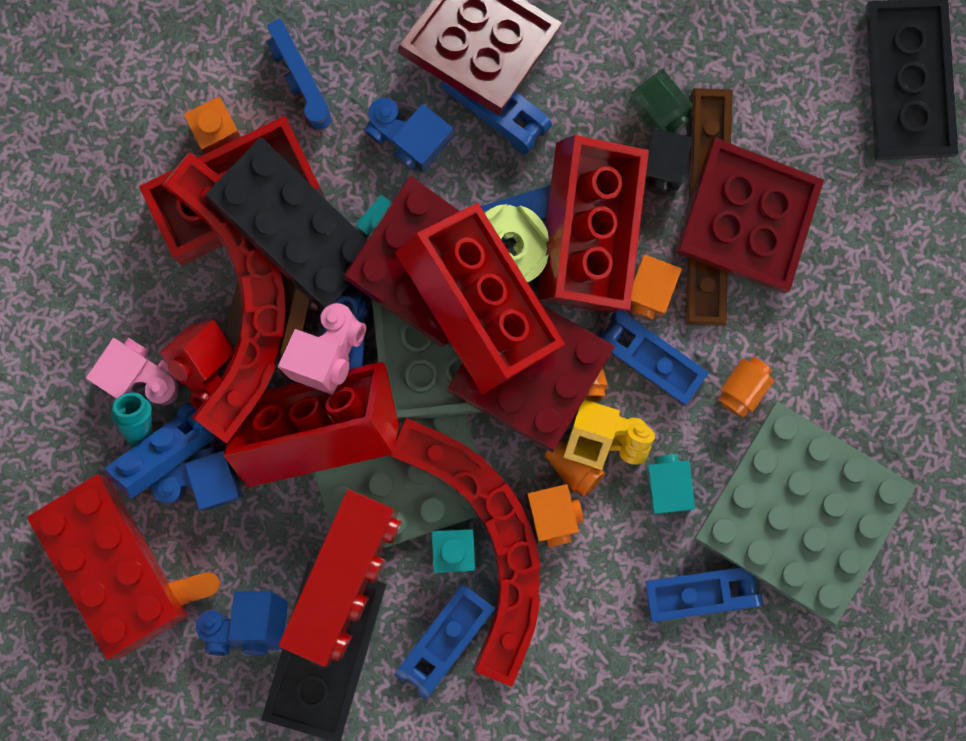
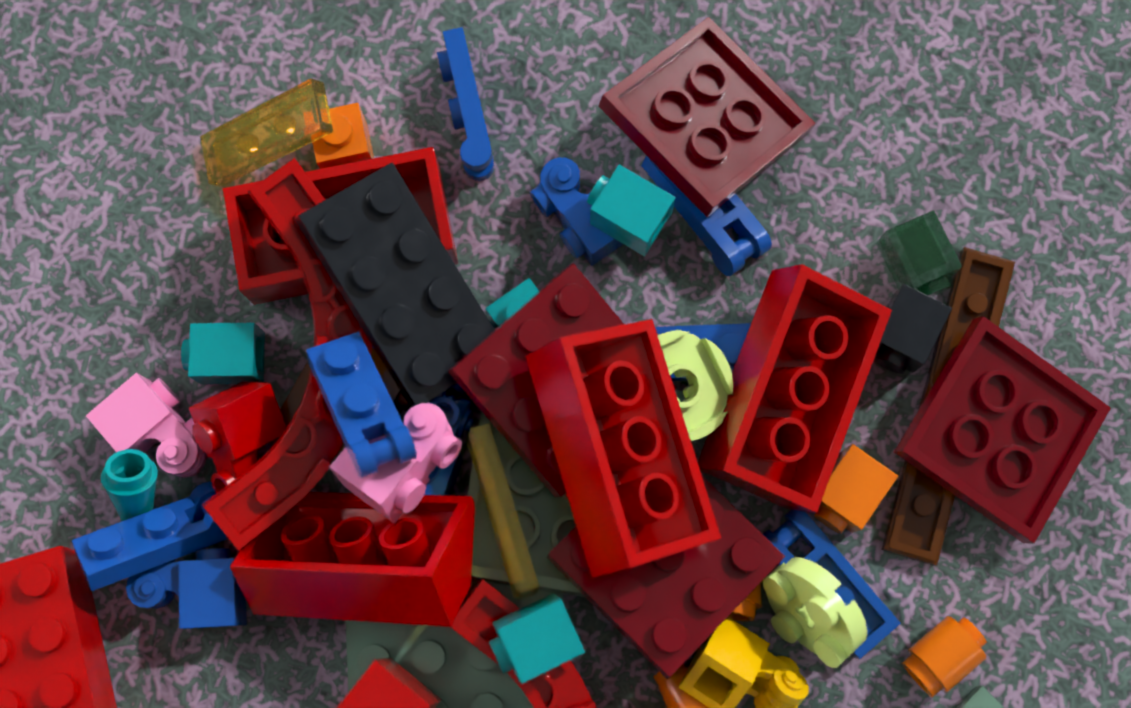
camera: 15 degrees right, 5 degrees down
(156, 136) = (267, 132): none -> clear yellow tile
(171, 307) = (224, 353): none -> teal brick
(286, 316) = (360, 404): none -> blue plate
(407, 367) = (502, 512): none -> clear yellow tile
(441, 125) = (630, 209): none -> teal brick
(454, 447) = (535, 639): none -> teal brick
(644, 380) = (812, 612): none -> yellowish green plate

